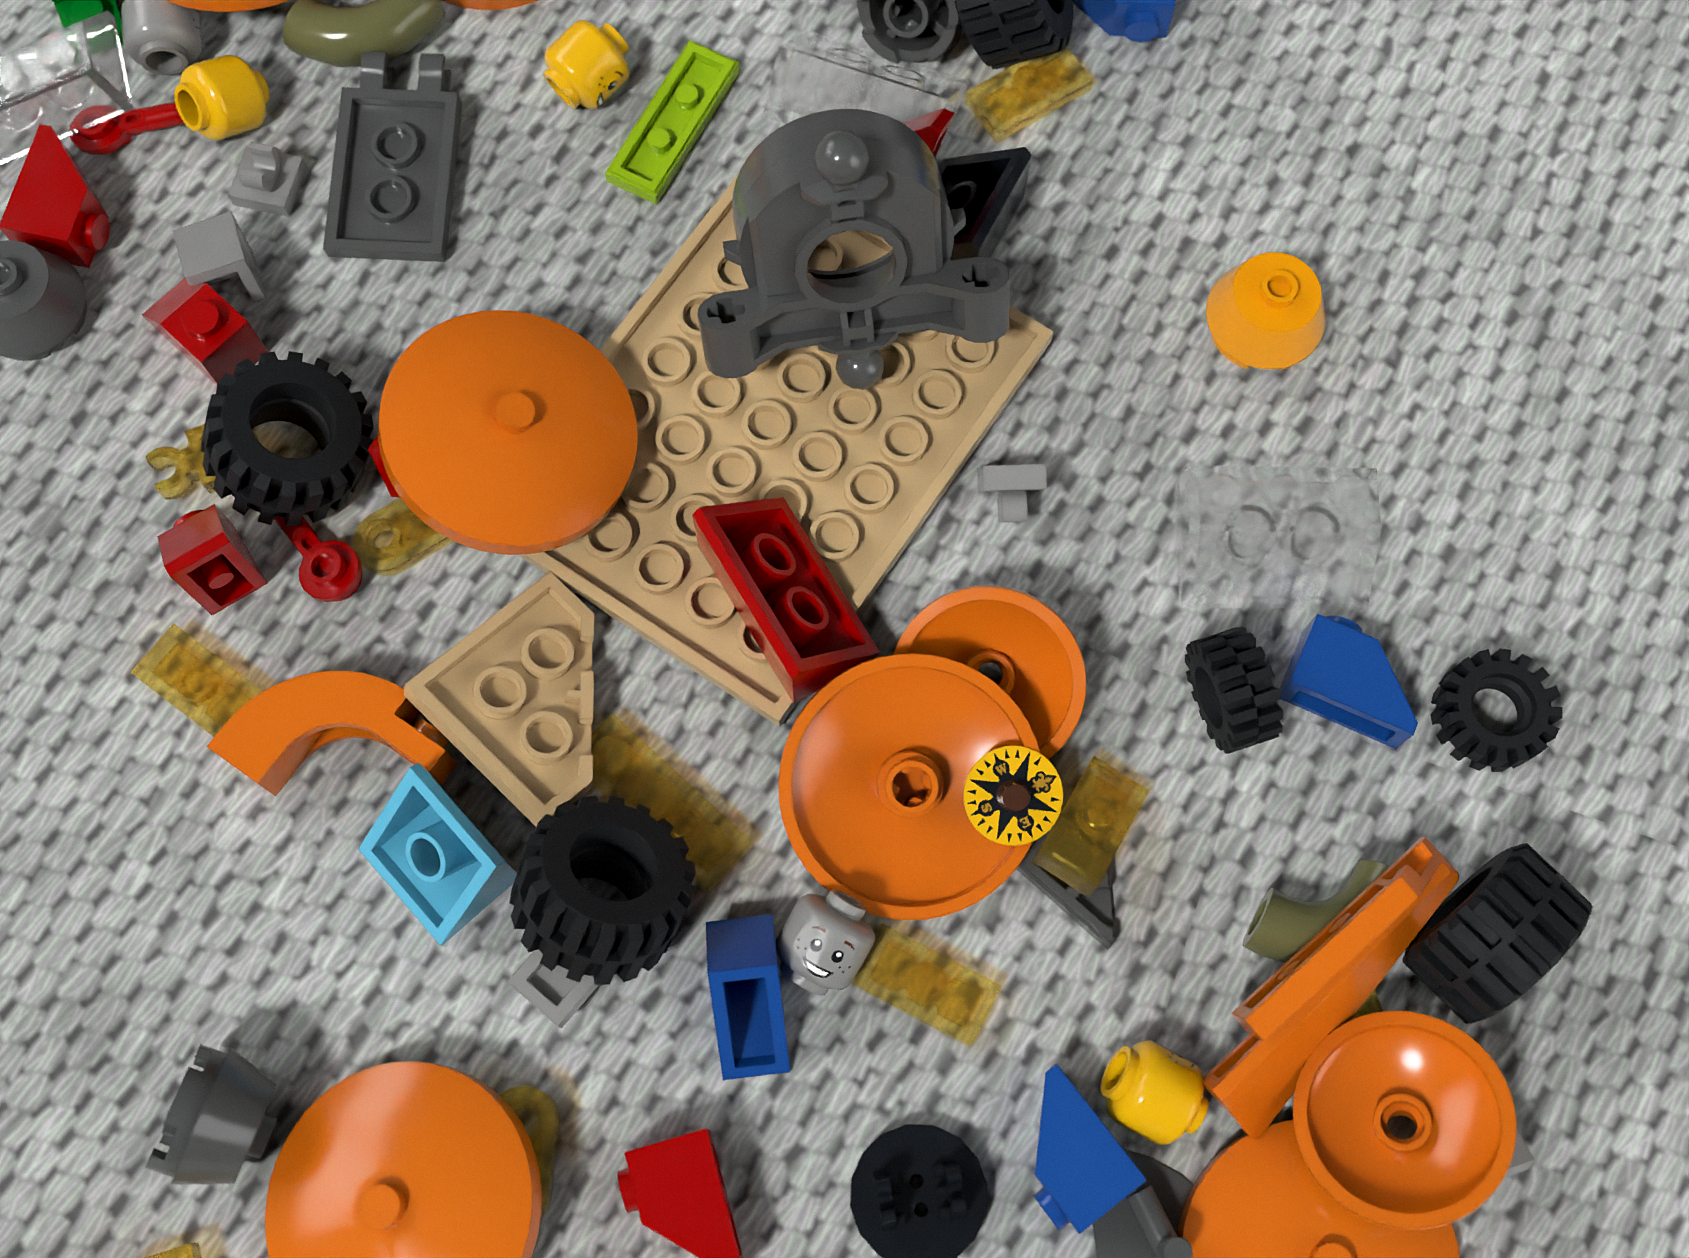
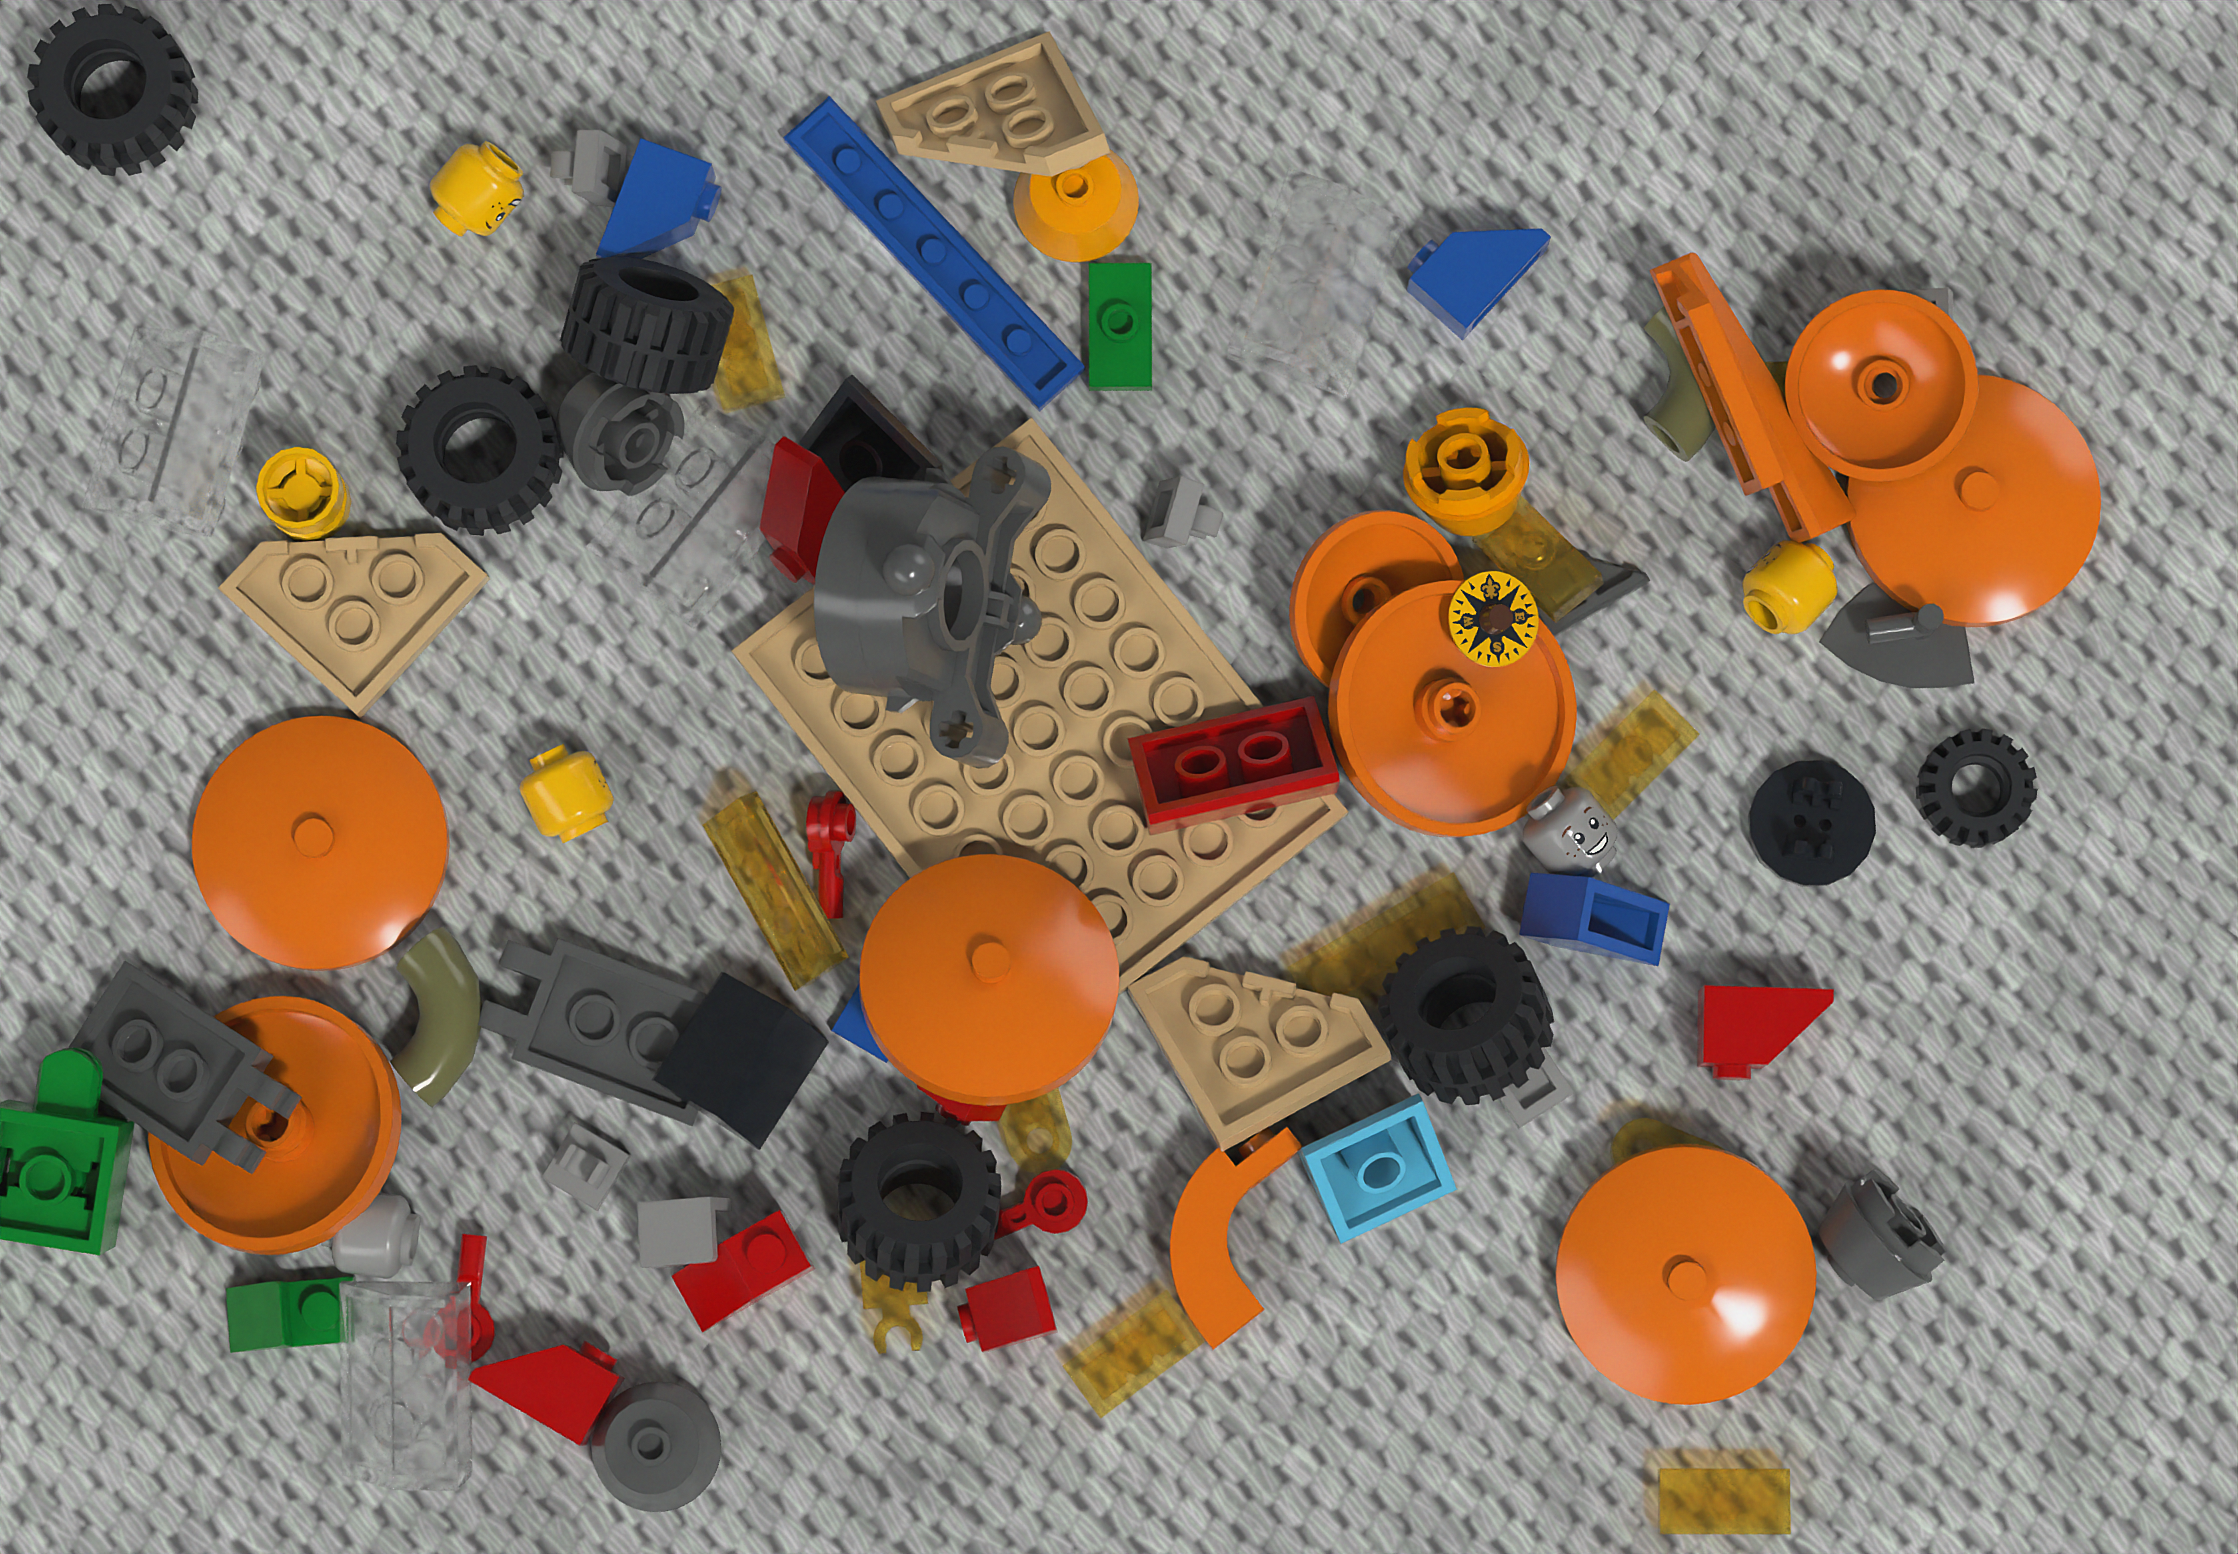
camera: 70 degrees left, 10 degrees up
(215, 1120) = (1562, 1418): dark grey cone -> none
(221, 97) = (481, 1187): yellow head -> none
(385, 267) = (741, 1059): none -> black slope
(555, 250) = (775, 891): none -> clear yellow plate
(618, 279) = (828, 827): none -> red plate
(672, 122) = (652, 724): lime tile -> none
(1078, 1159) = (1825, 674): blue slope -> none
(1148, 727) = (1466, 471): none -> light orange cone
(1166, 388) = (1120, 326): none -> green plate
(1167, 223) = (934, 253): none -> blue tile
(1234, 689) = (1455, 379): black tyre -> none
(1317, 219) = (1000, 113): none -> tan plate
(1498, 934) = (1753, 239): black tyre -> none
(1525, 690) = (1549, 110): black tyre -> none

